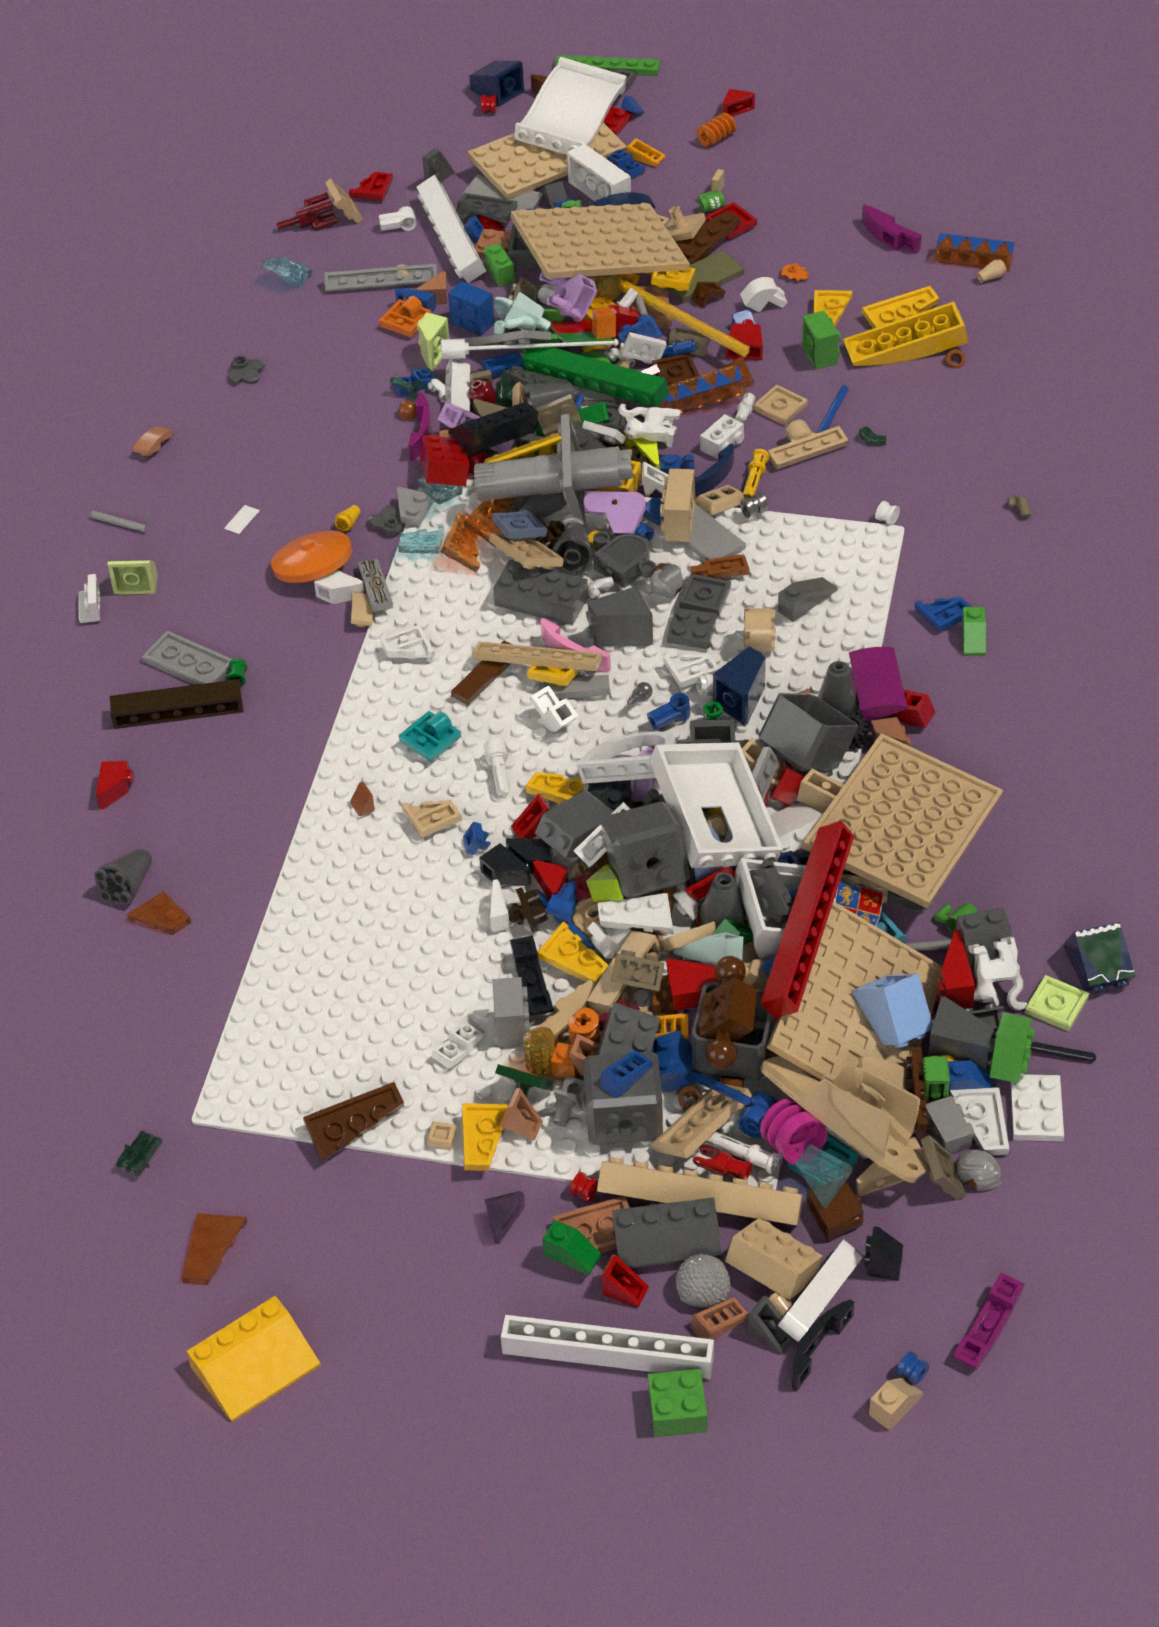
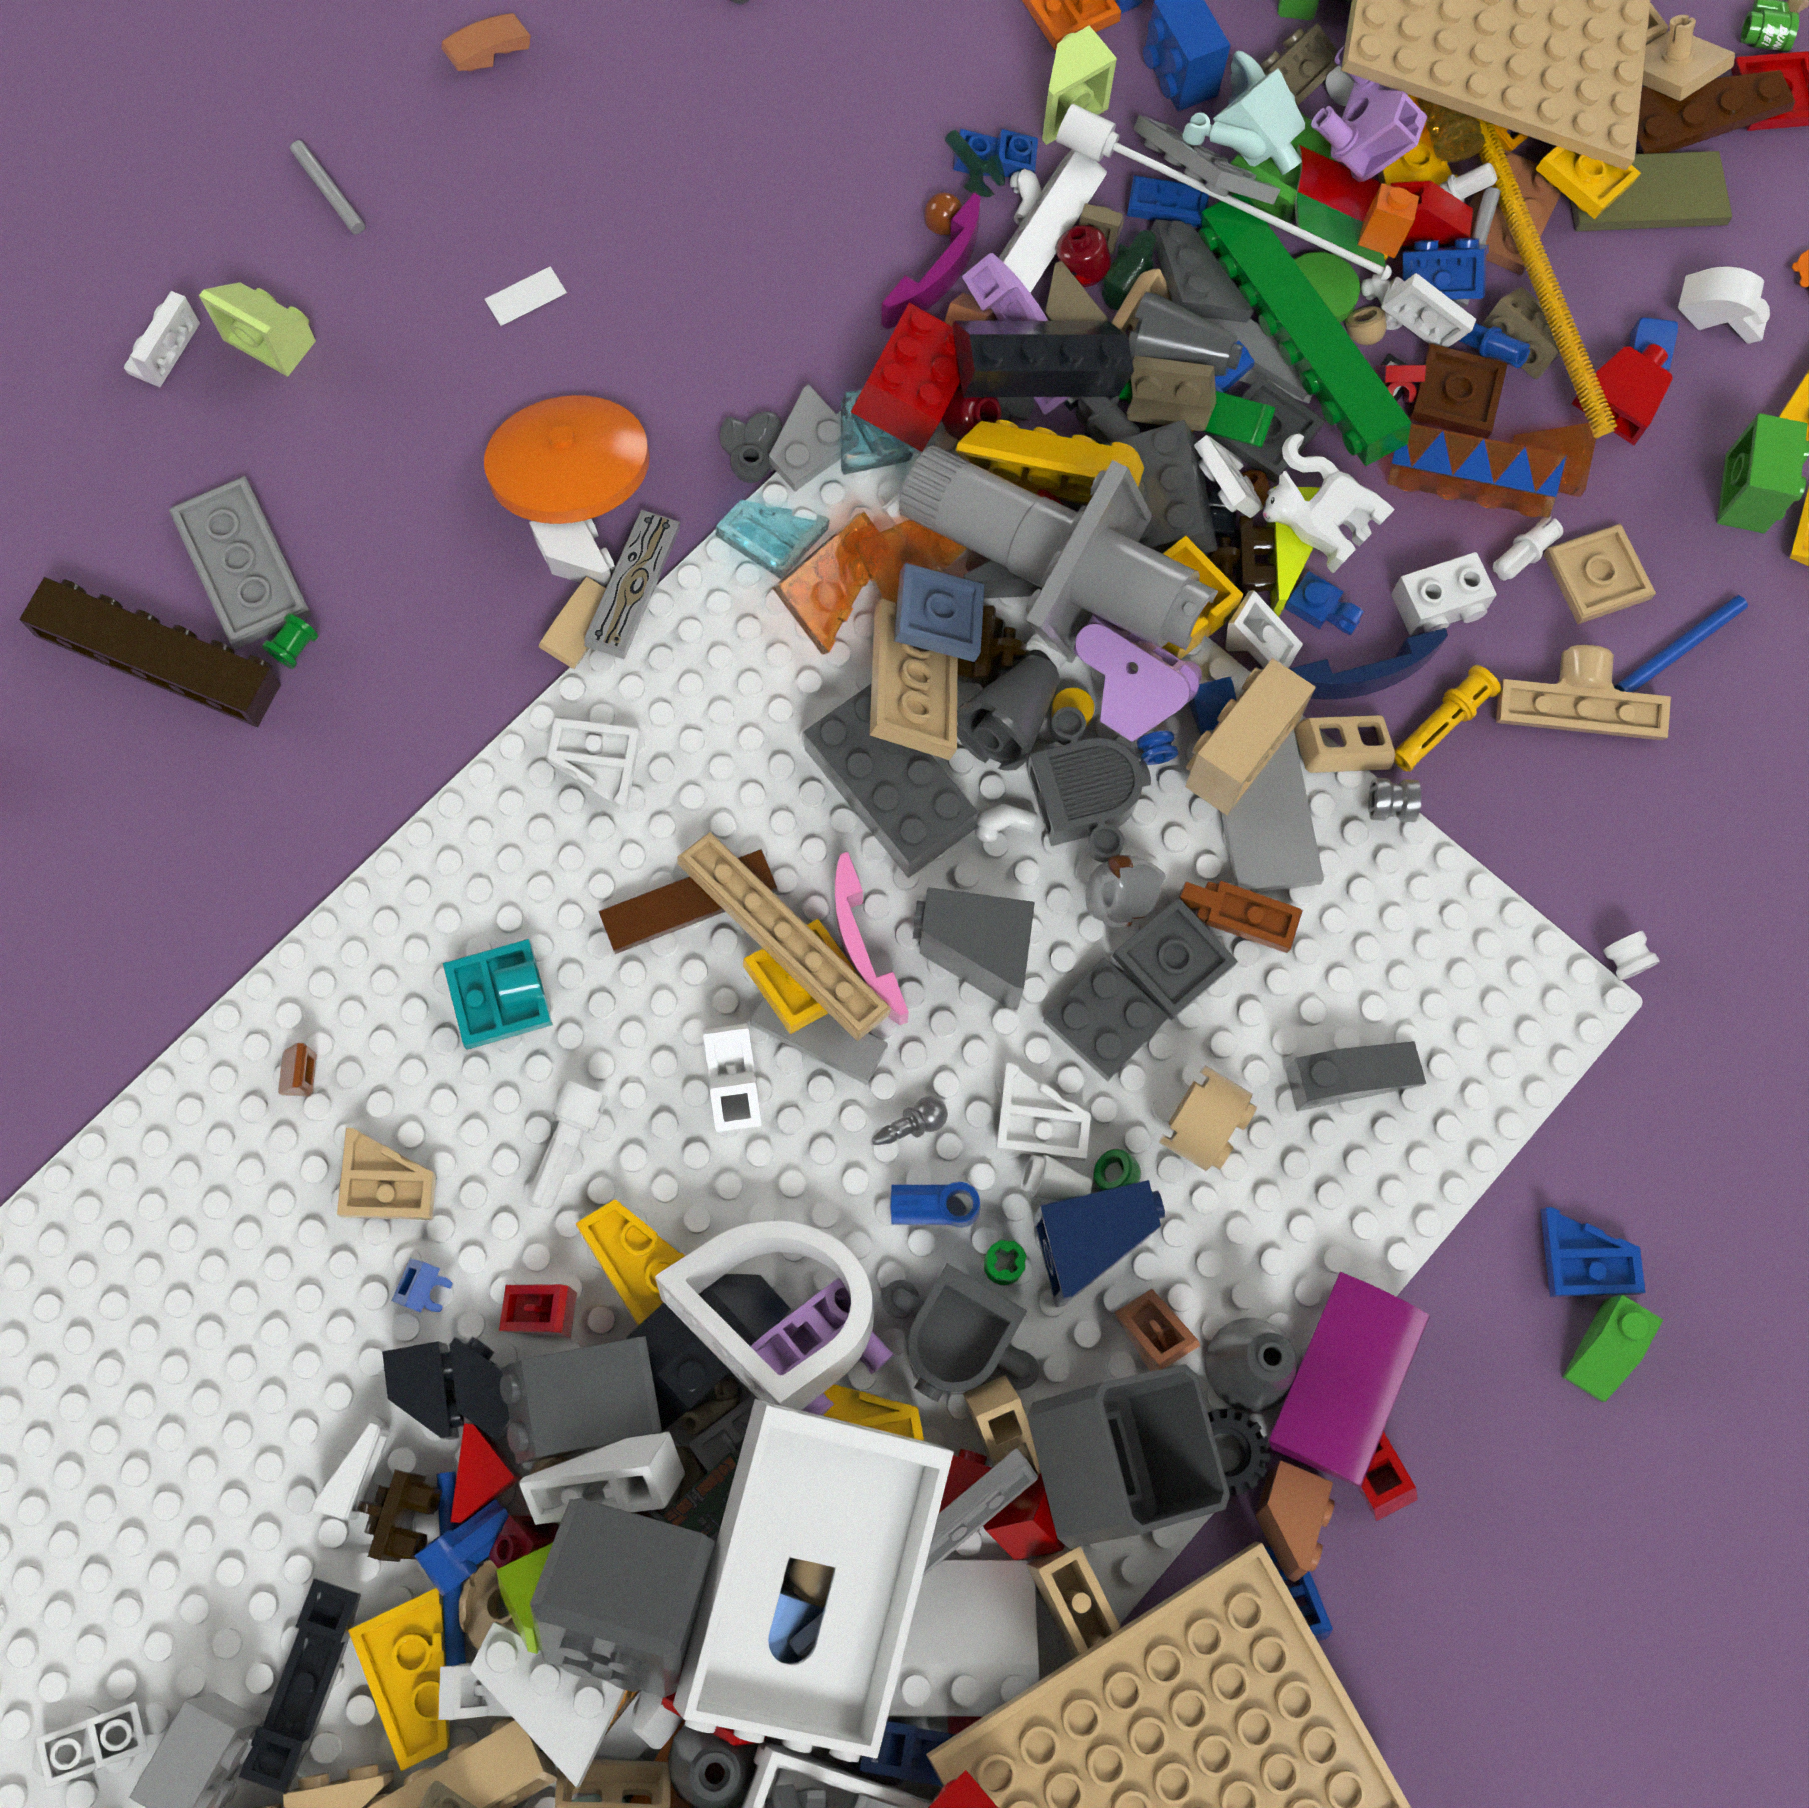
camera: 25 degrees right, 25 degrees up
(346, 519) = (687, 401): yellow cone -> none
(707, 291) = (1630, 234): reddish brown bracket -> none
(870, 437) = (1713, 749): clear green arm -> none

